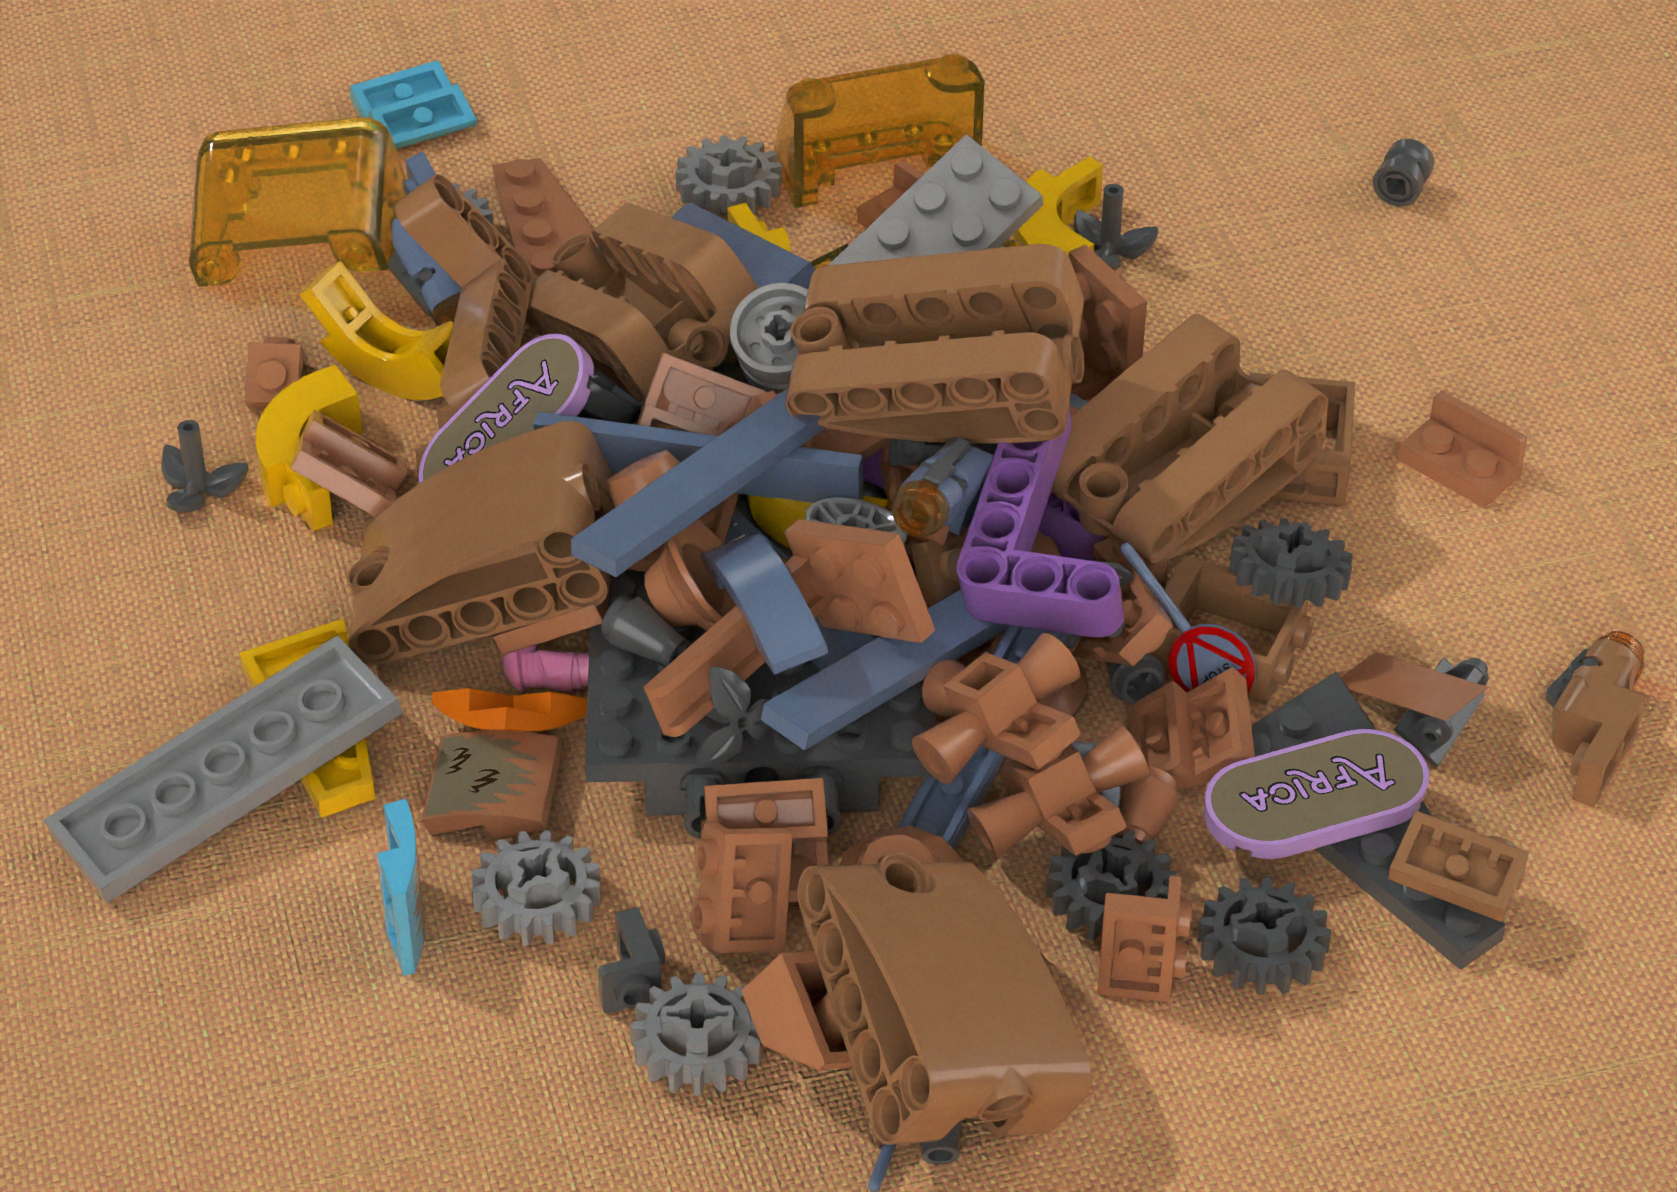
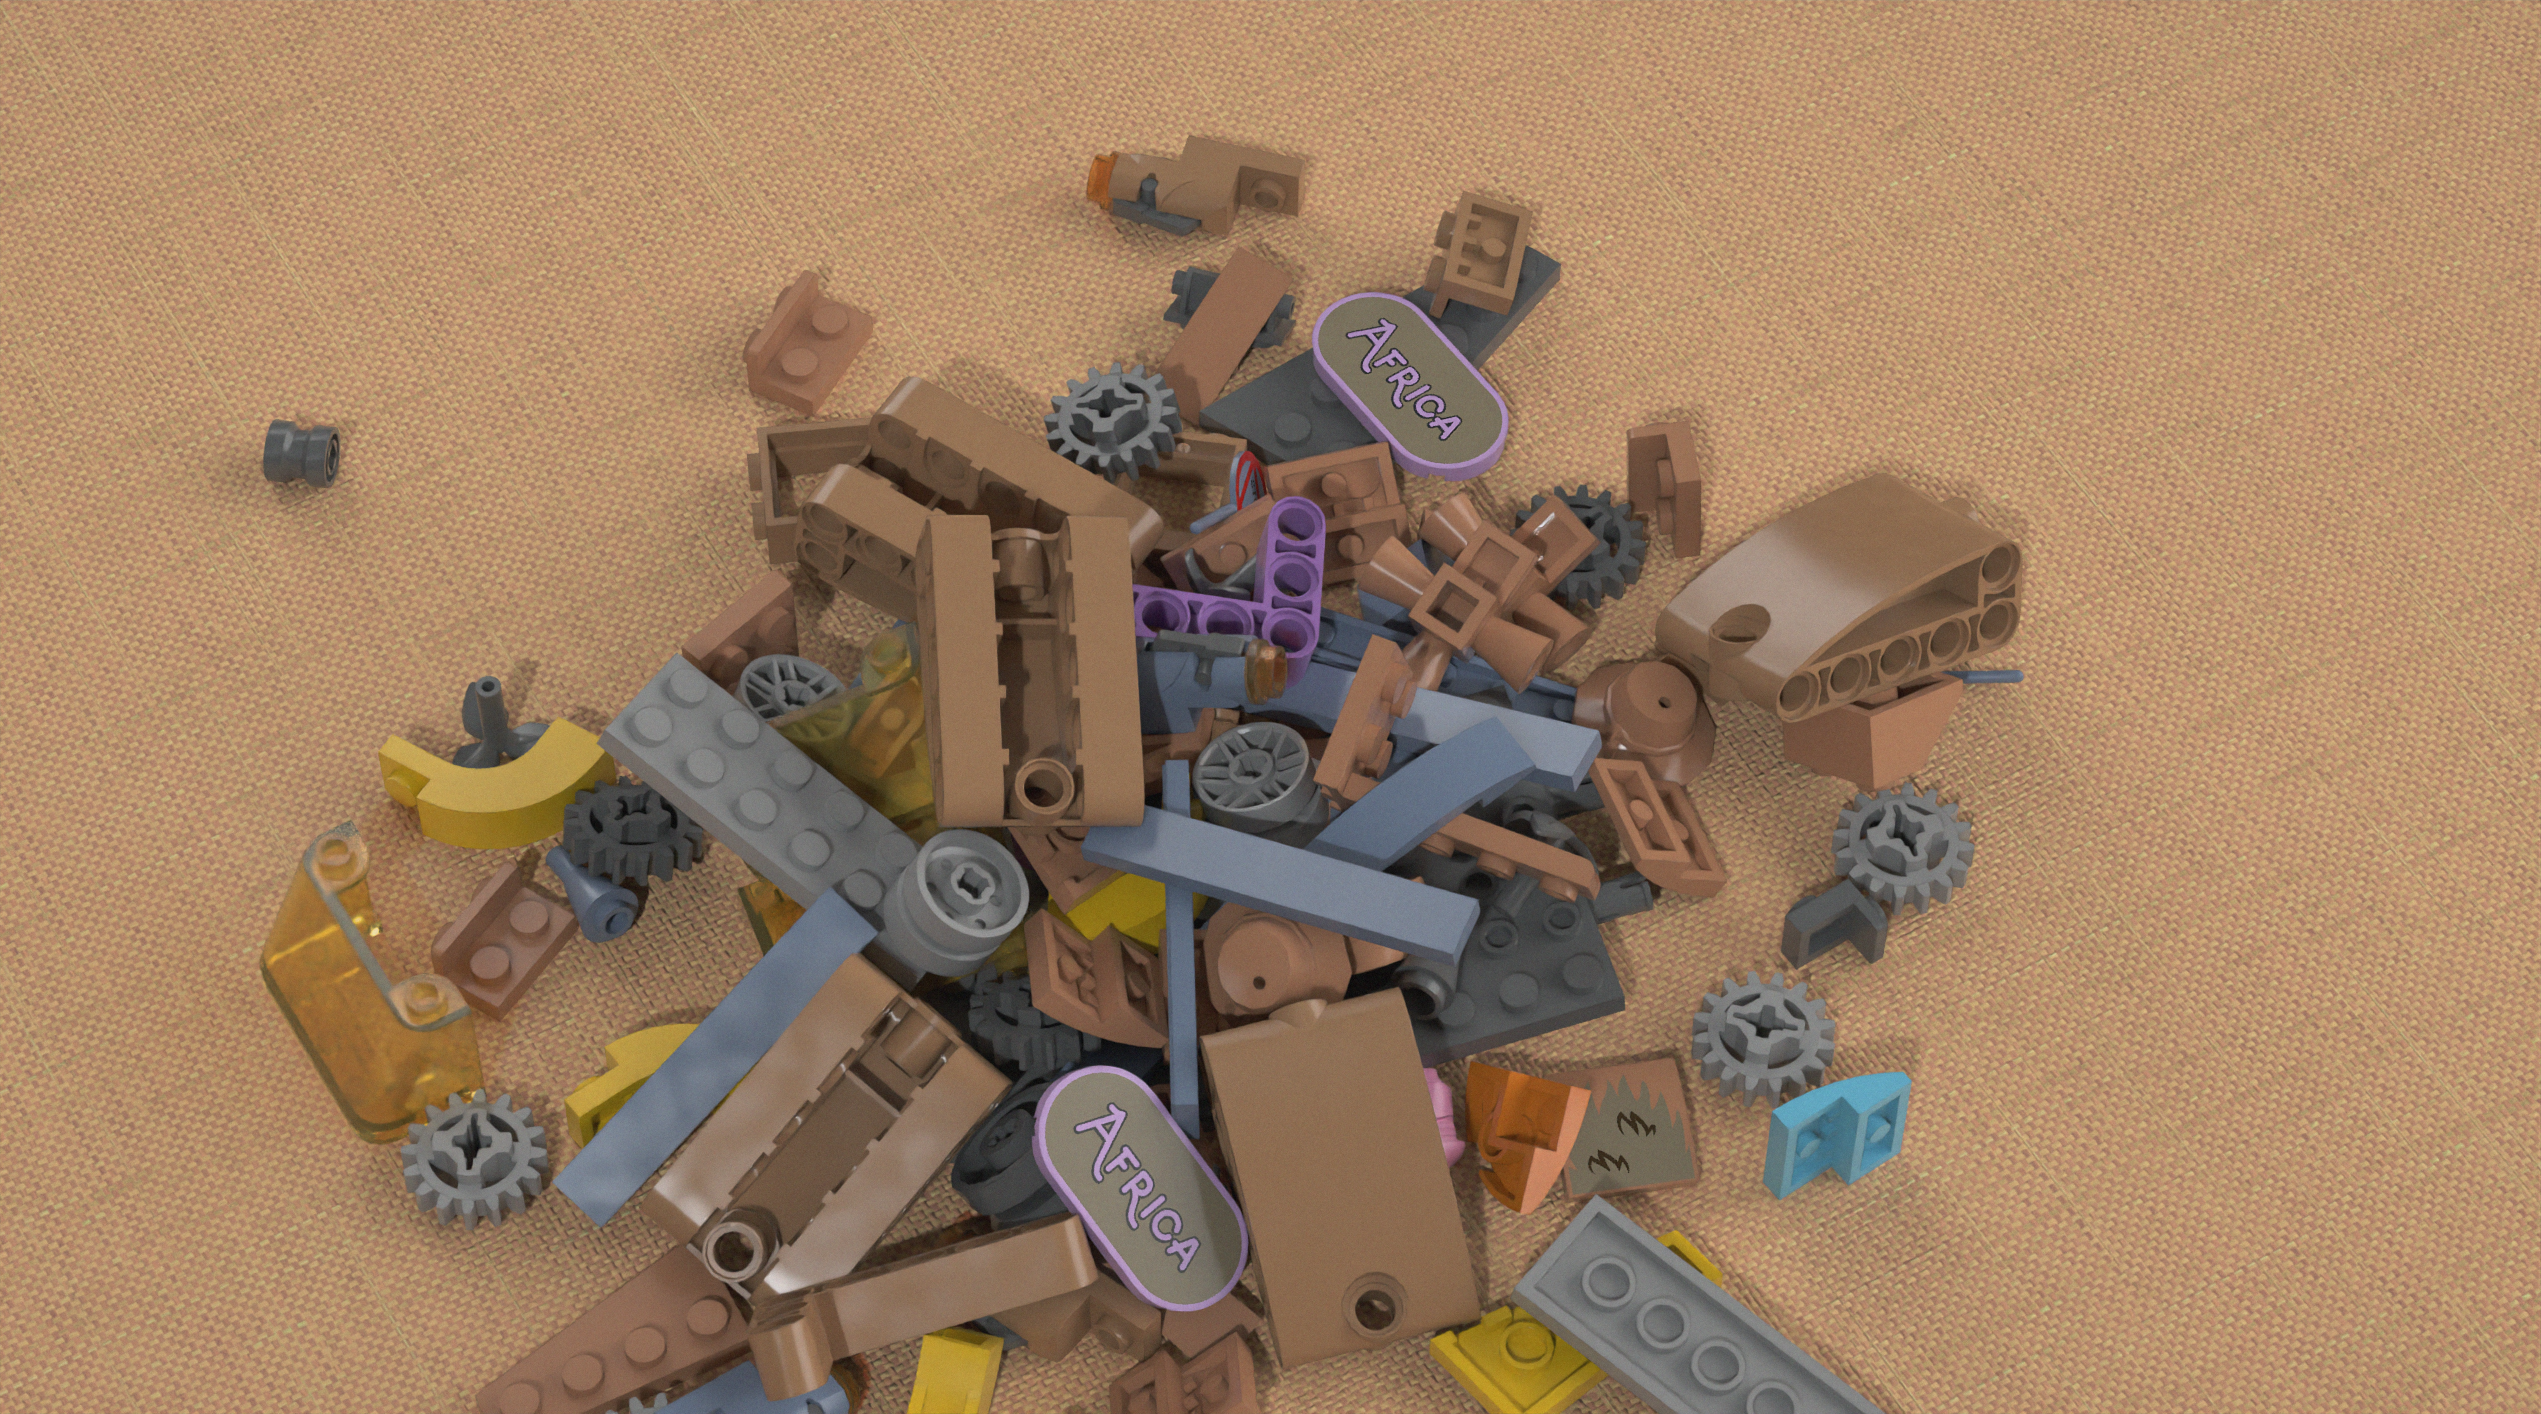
camera: 105 degrees left, 10 degrees up
(742, 888) = (1727, 838): nougat bracket -> none
(1259, 935) = (1597, 413): dark grey gear -> none

